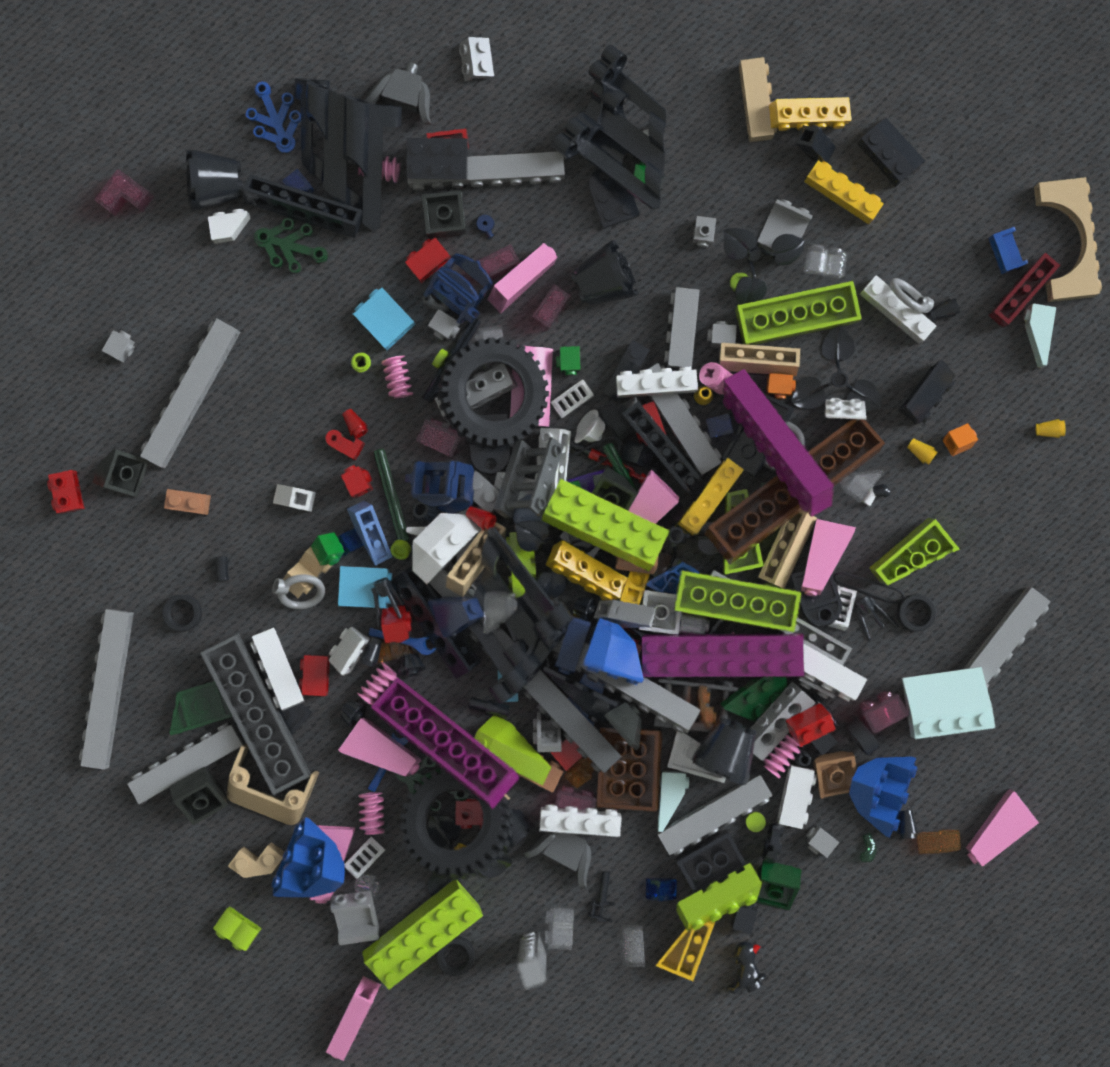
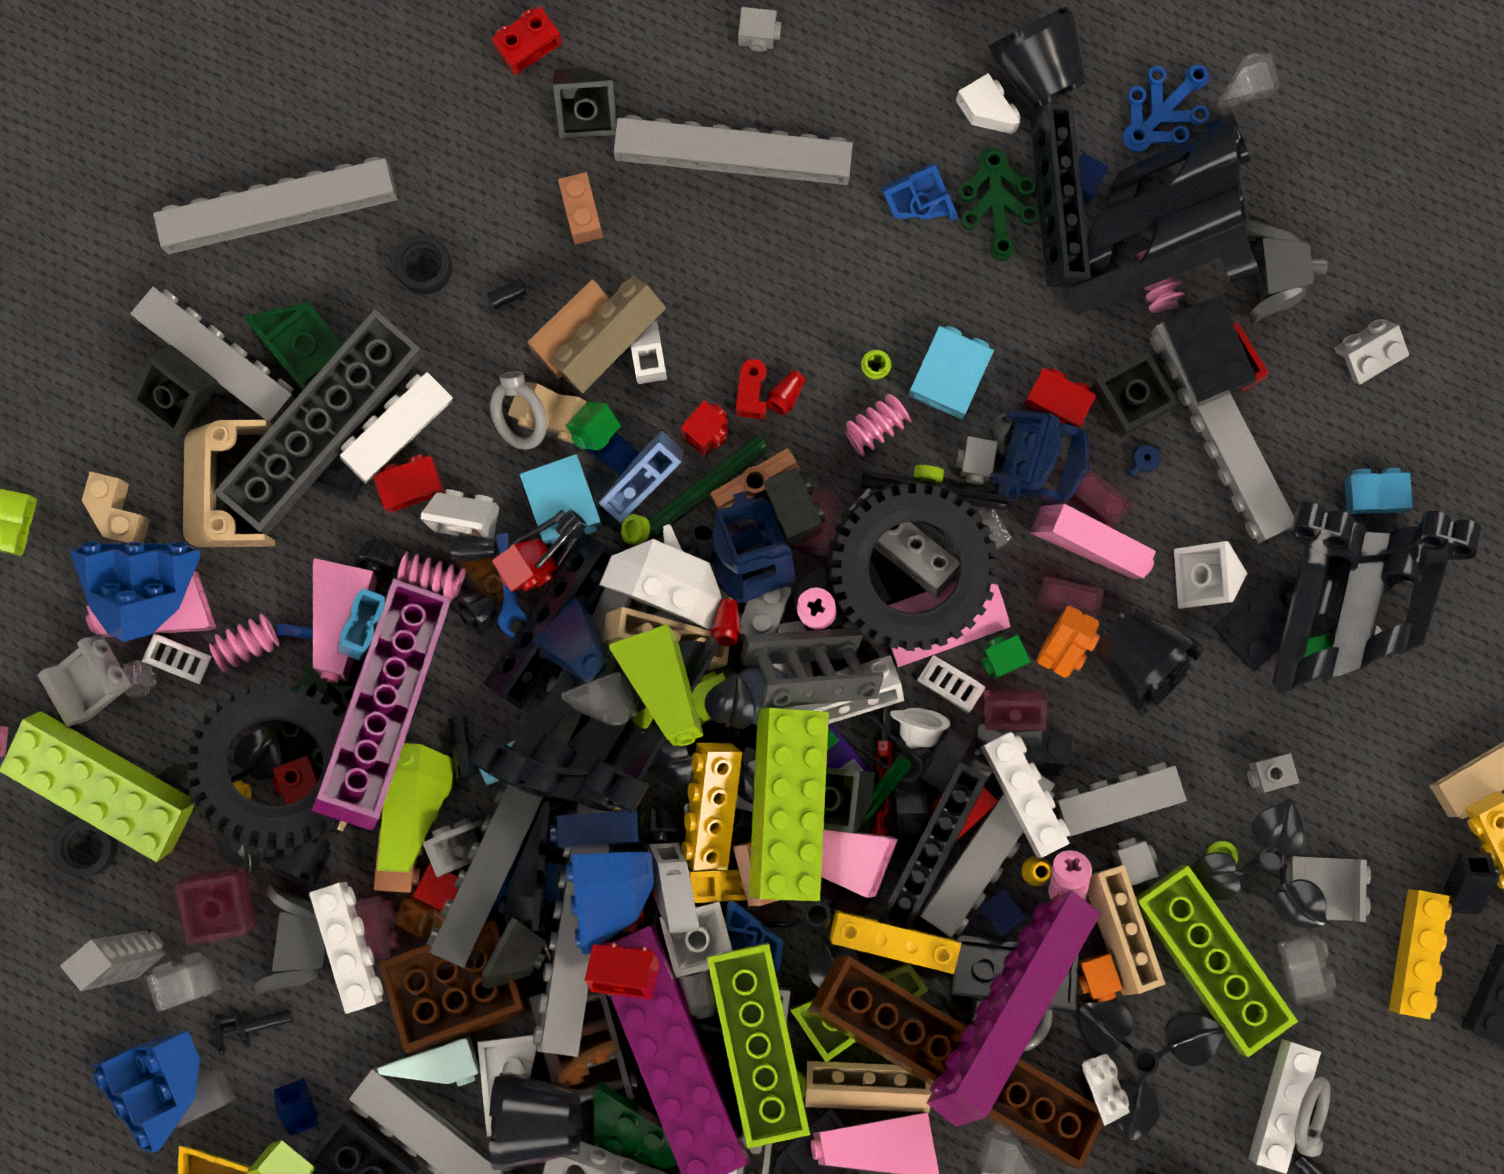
camera: 65 degrees right, 5 degrees down
(263, 536) = (565, 324): none -> medium nougat slope
(265, 291) = (919, 195): none -> blue slope
(274, 517) = (607, 334): none -> dark tan brick
(279, 57) = (1252, 81): none -> clear slope
(395, 739) = (360, 625): none -> dark azure brick
(400, 452) = (768, 469): none -> nougat piece
(427, 447) = (793, 505): none -> pearl dark grey brick
(486, 460) = (813, 597): none -> bright pink piece
(501, 570) = (660, 679): none -> lime slope
(523, 890) = (215, 905): none -> clear pink brick
(564, 94) = (1378, 492): none -> dark azure brick
(571, 218) = (1207, 574): none -> white slope
(576, 318) = (1068, 642): none -> orange brick
(603, 367) = (1015, 710): none -> clear pink brick
(613, 969) = (151, 1086): none -> blue brick
(662, 663) = (622, 971): none -> red brick

